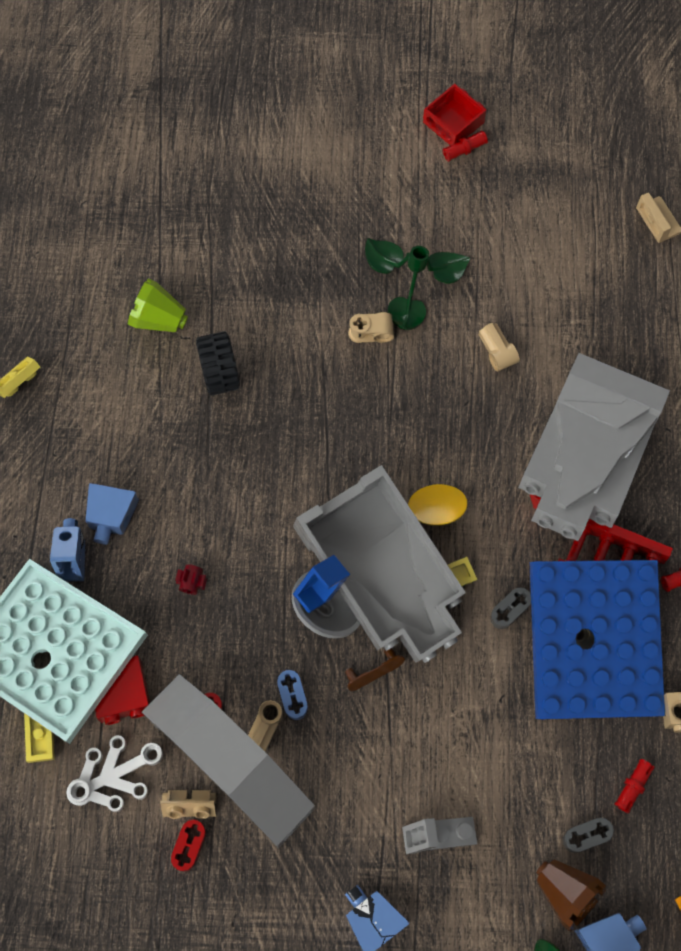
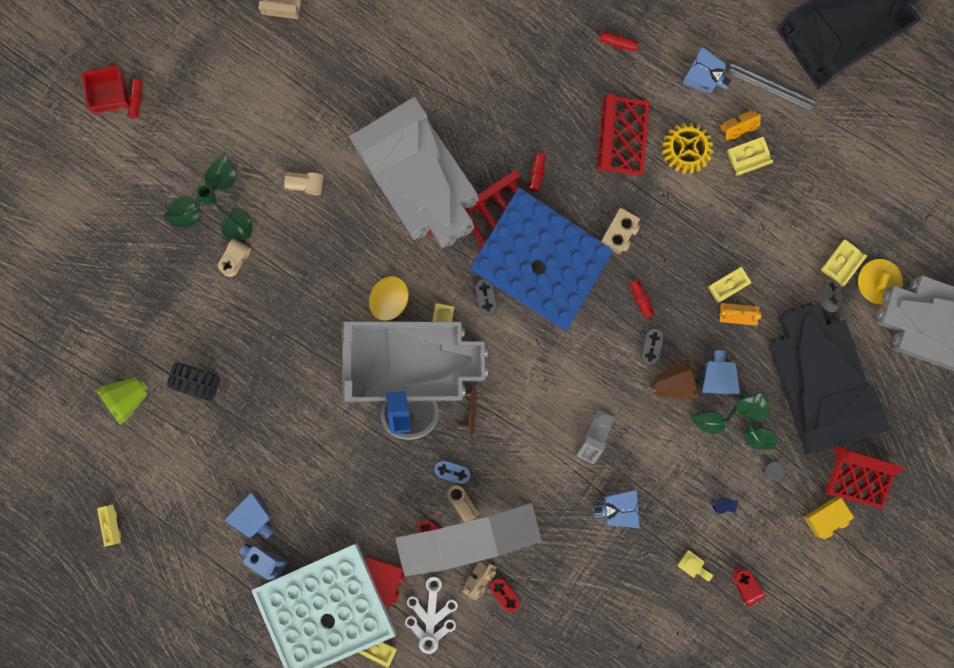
camera: 55 degrees left, 15 degrees up
(191, 579) = (335, 491): dark red gear -> none

